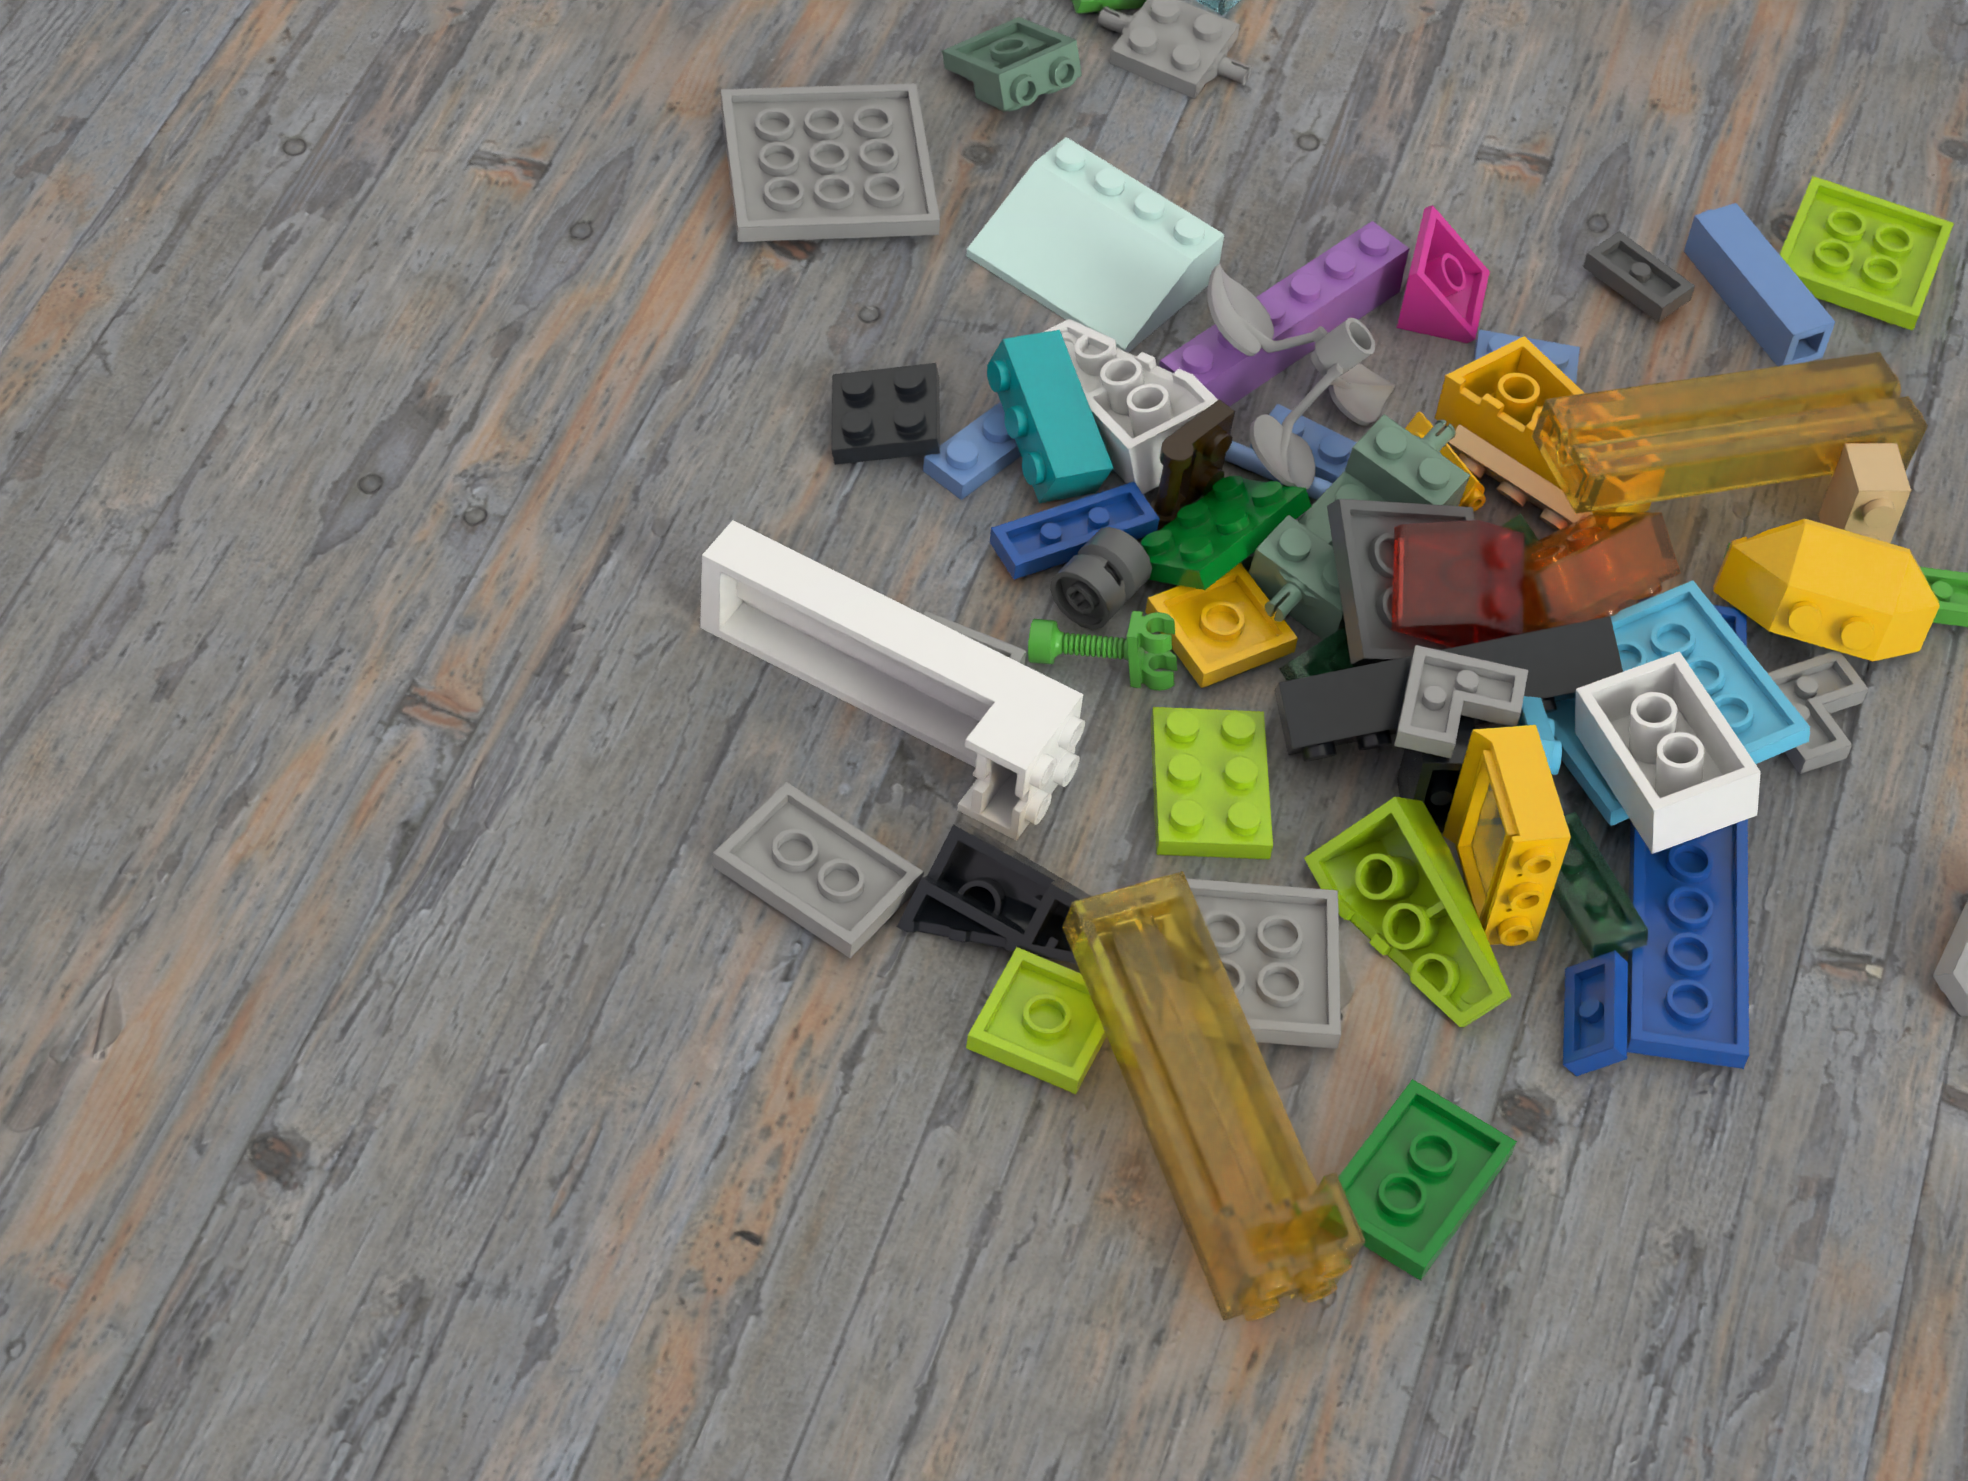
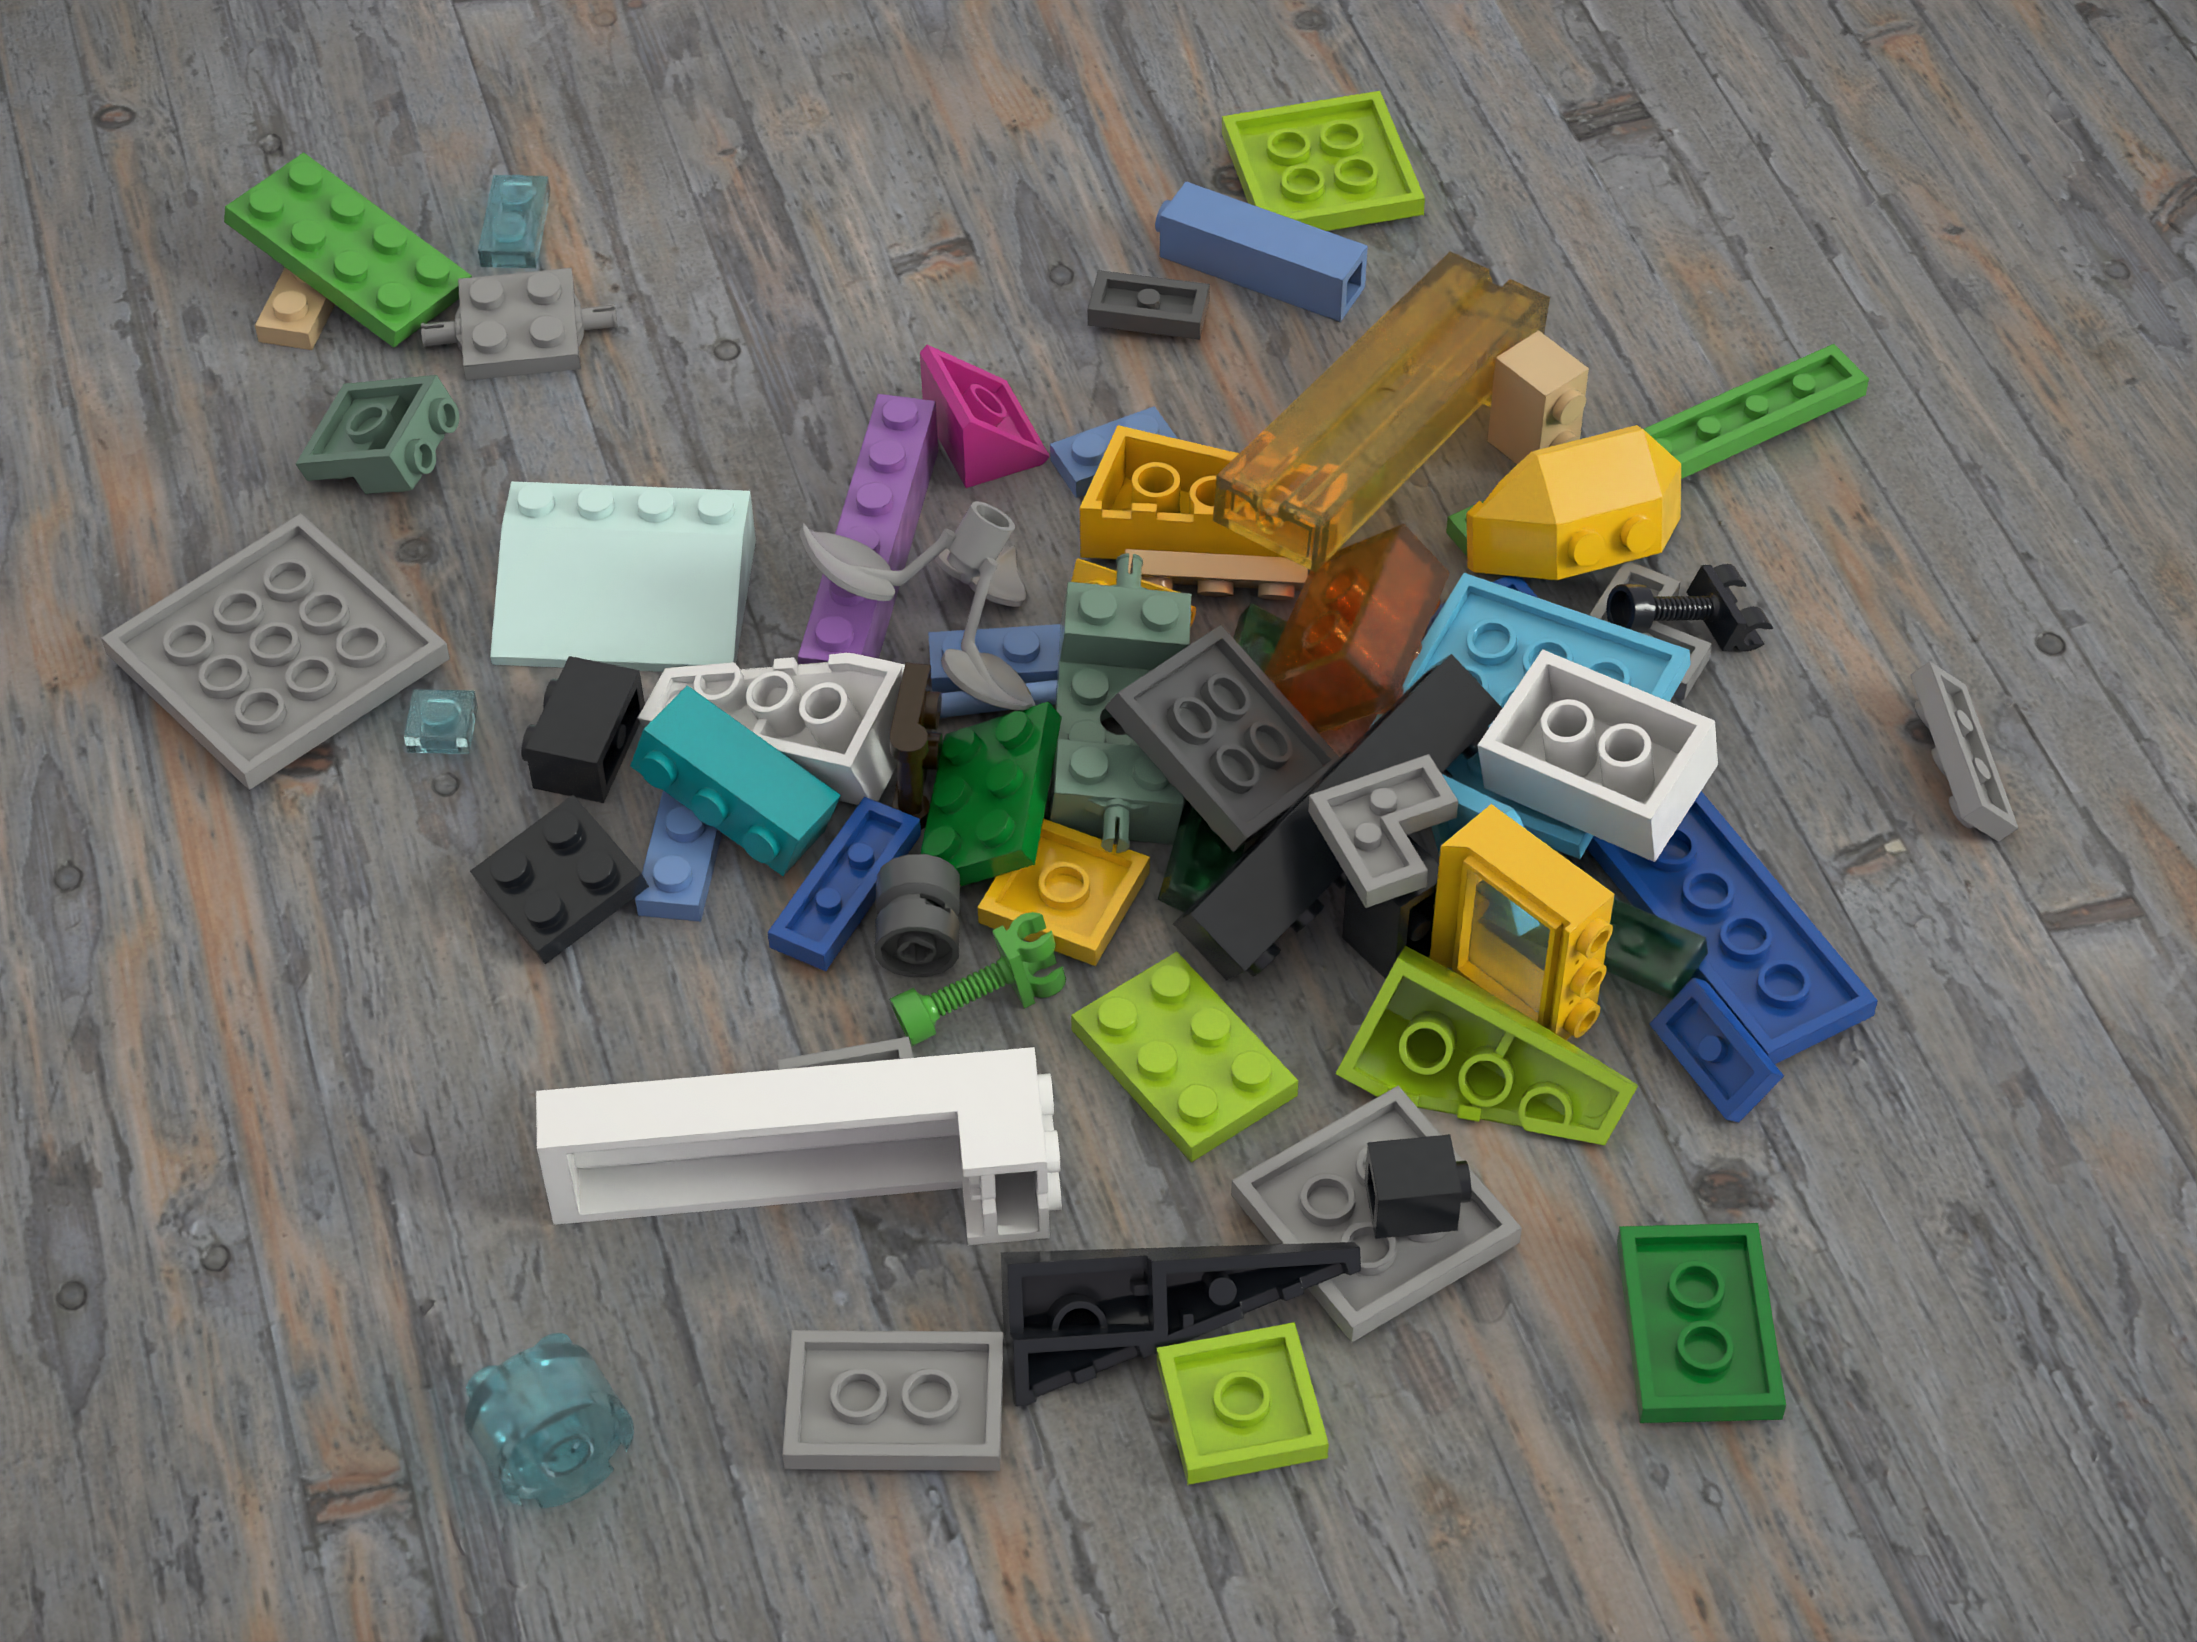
camera: 30 degrees left, 0 degrees up
(578, 734) = (547, 1422): none -> clear light blue brick
(898, 271) = (441, 721): none -> clear light blue plate
(970, 328) = (584, 729): none -> black brick
(1209, 1101) = (1480, 1379): clear yellow brick -> none
(1280, 954) = (1415, 1186): none -> black brick
(1458, 581) = (1277, 708): clear red slope -> none
(1887, 715) = (1707, 600): none -> black bar

